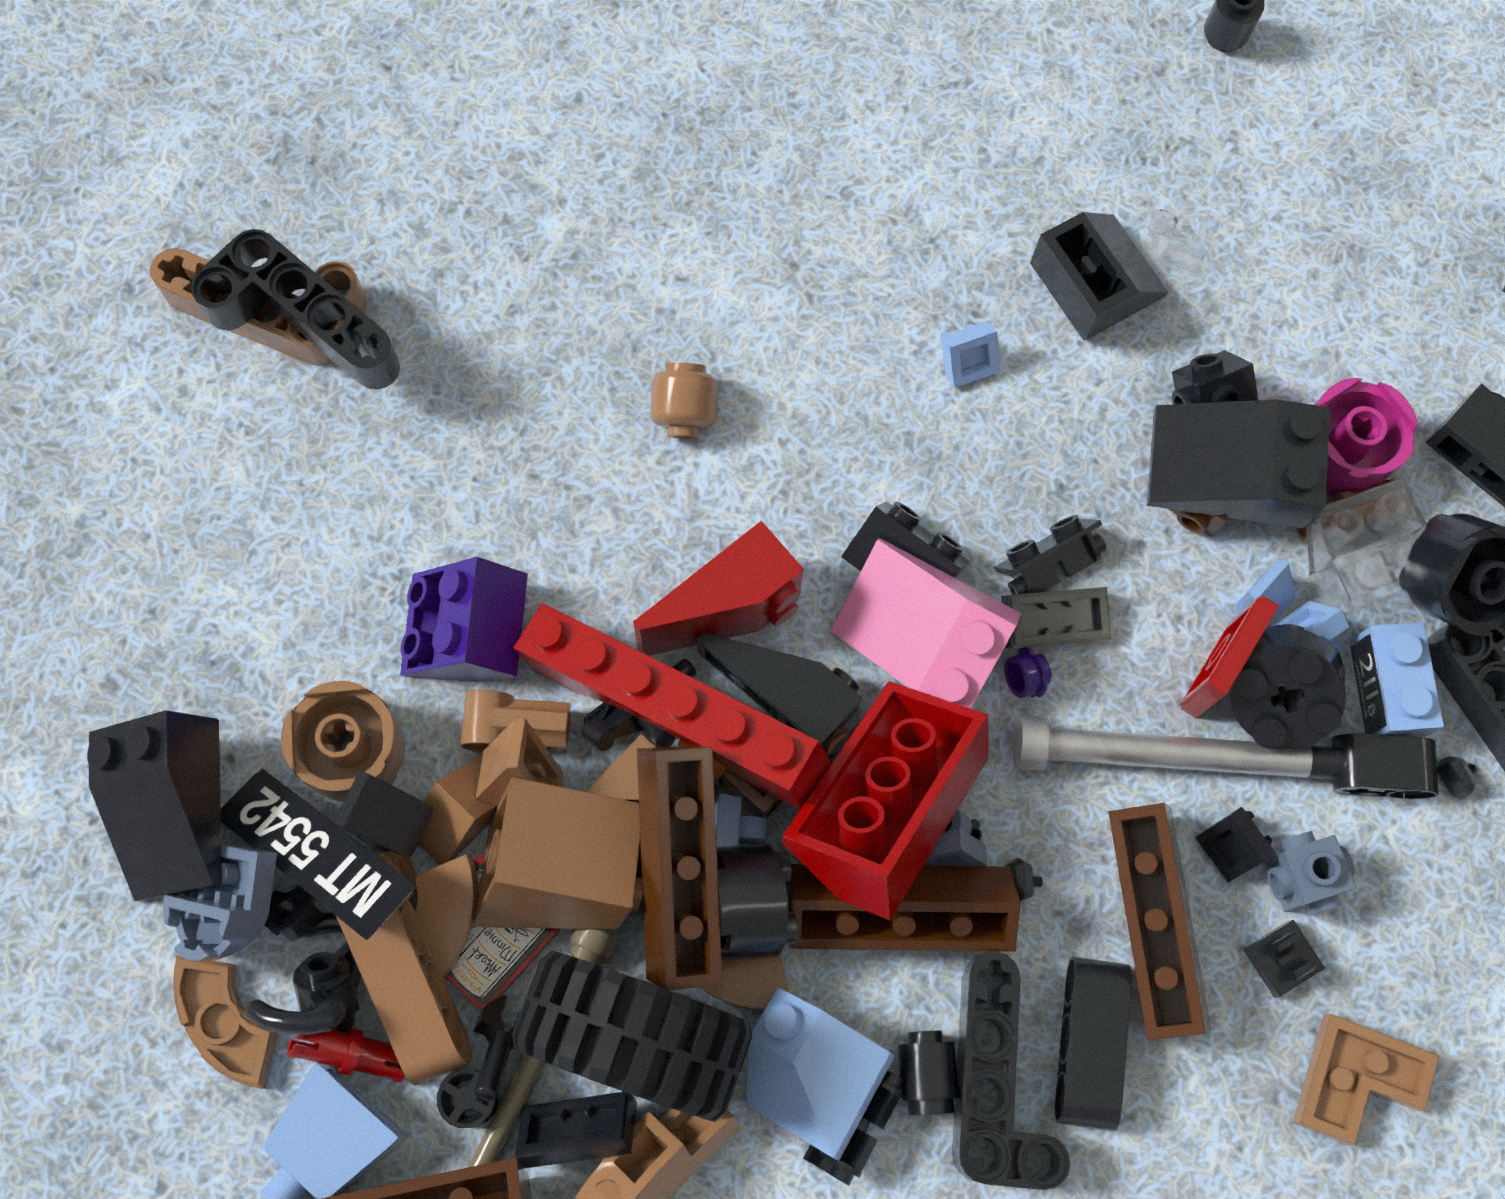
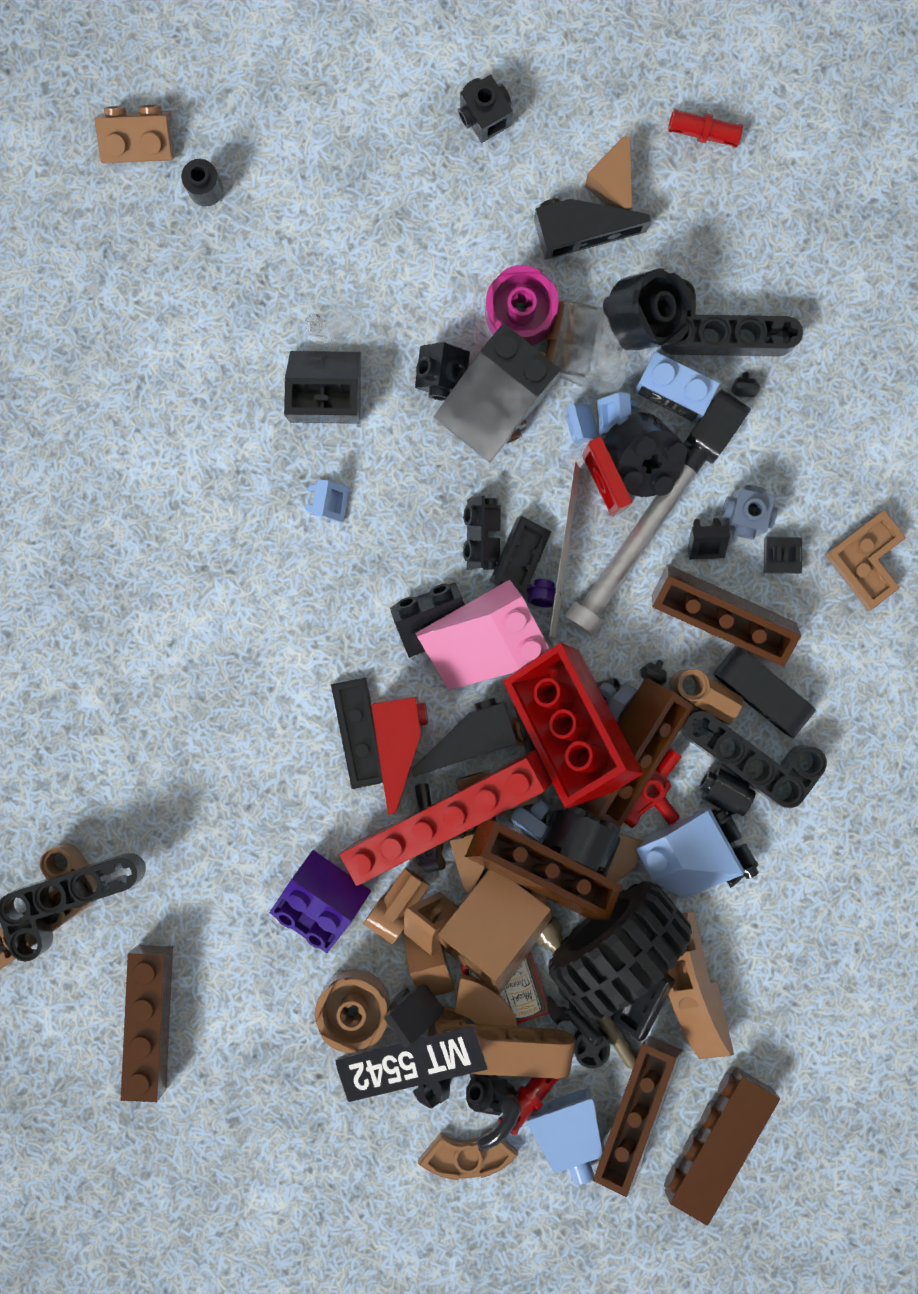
camera: 50 degrees left, 15 degrees up
(160, 800) = (327, 1131): black slope -> none
(186, 500) = (146, 1023): none -> reddish brown brick
(228, 916) = (405, 1126): sand blue slope -> none
(684, 399) = (256, 692): medium nougat head -> none
(706, 542) = (357, 732): none -> black tile
(865, 973) = (655, 793): none -> red piece
(1042, 969) = (708, 695): none -> medium nougat piece
(1101, 666) = (565, 549): none -> white sticker

